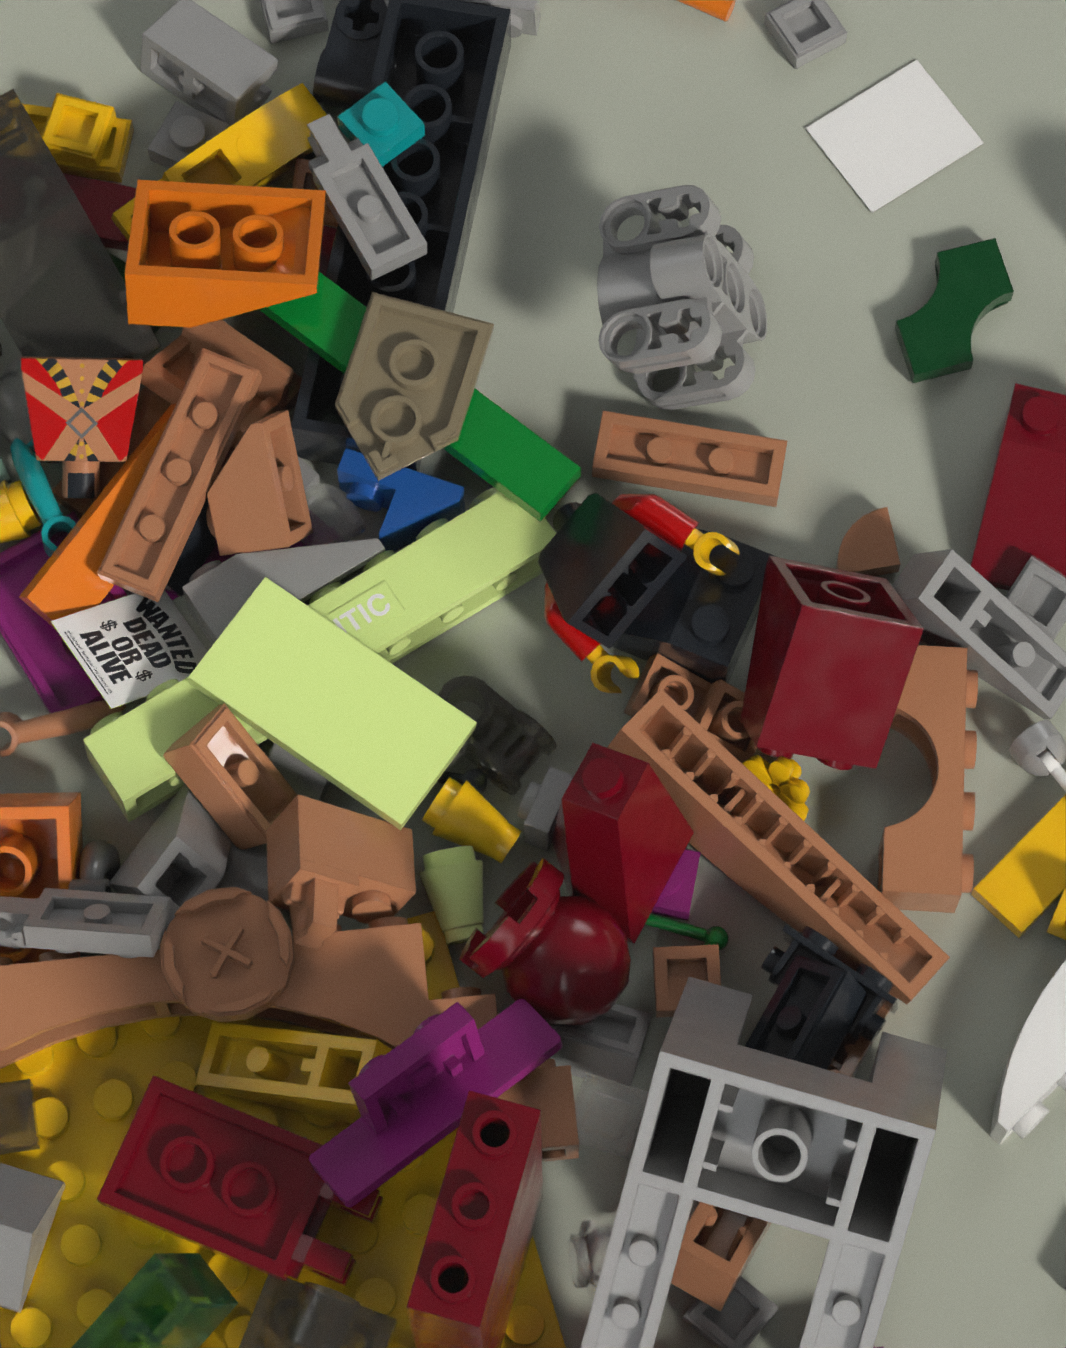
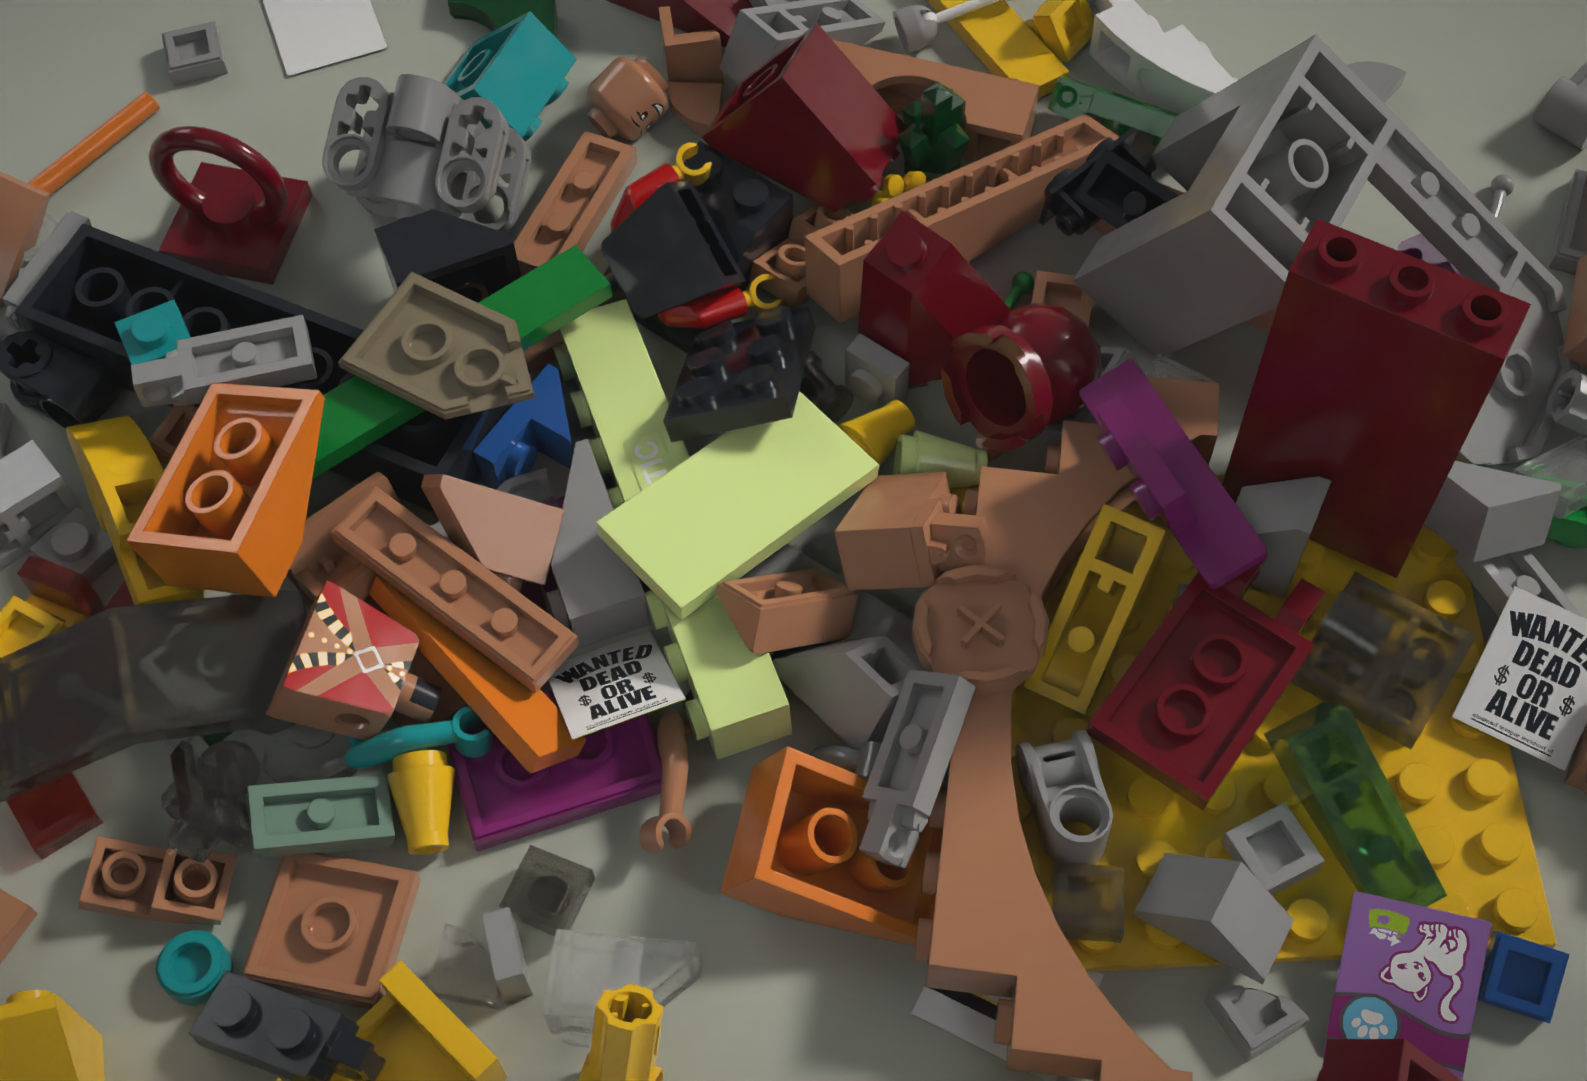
camera: 75 degrees left, 10 degrees down
(77, 1278) = (1274, 849): none -> light grey plate
(98, 1072) = (1062, 787): none -> light grey piece
(135, 138) = (60, 586): none -> clear red tile
(404, 1217) = (1283, 520): none -> light grey slope
(487, 672) = (741, 374): none -> black plate
(539, 356) = (449, 253): none -> black slope
(594, 137) = (228, 216): none -> dark red tile
(828, 340) = (517, 70): none -> teal slope
(845, 471) = (626, 98): none -> nougat head
(863, 801) = (934, 133): none -> dark green rock
(931, 514) = (690, 55): none -> nougat panel
(974, 1010) = (1117, 111): none -> green hinge

